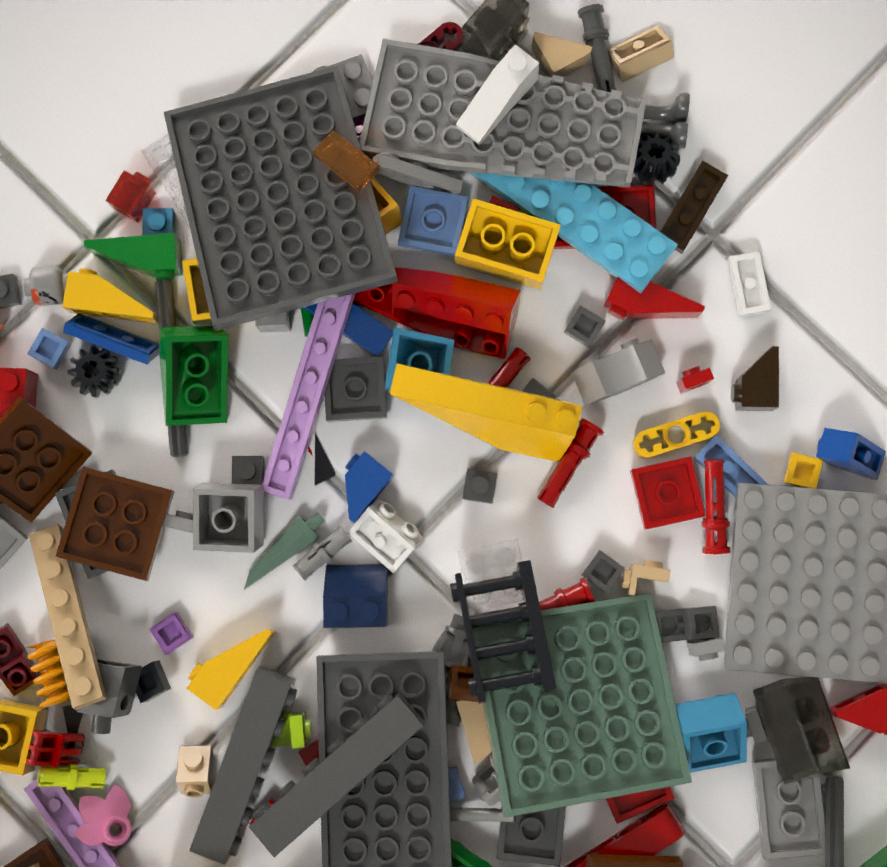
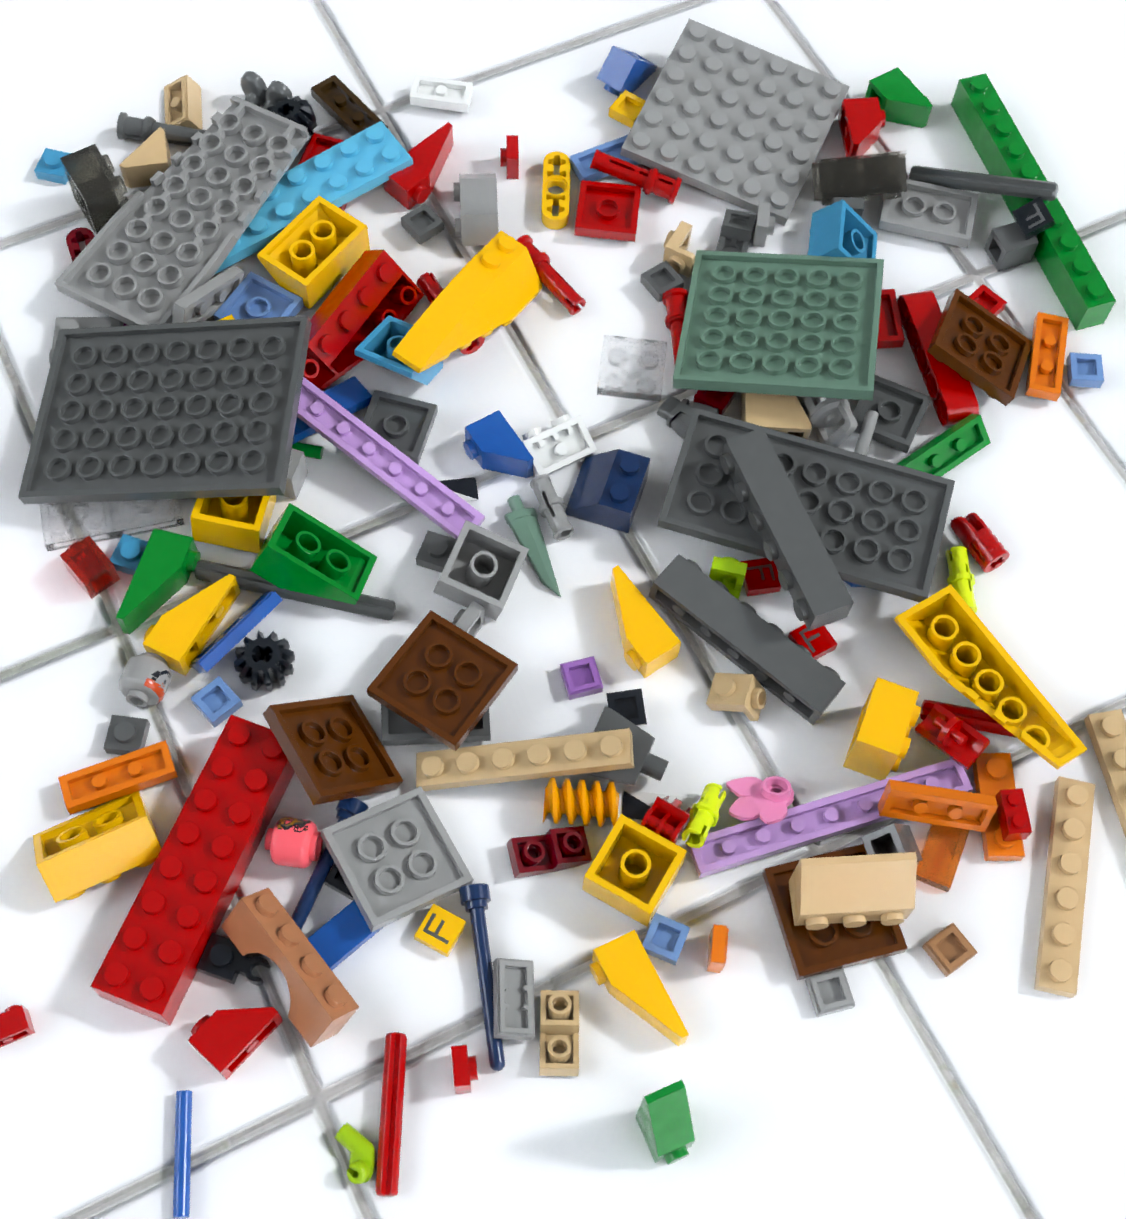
camera: 80 degrees left, 20 degrees down
(346, 160) = (165, 333): clear orange tile -> none
(459, 683) = (733, 405): reddish brown plate -> none
(479, 486) = (539, 356): dark grey plate -> none
(499, 94) = (168, 195): white slope -> none
(528, 611) = (693, 323): black fence -> none
(759, 385) = (536, 112): dark brown slope -> none

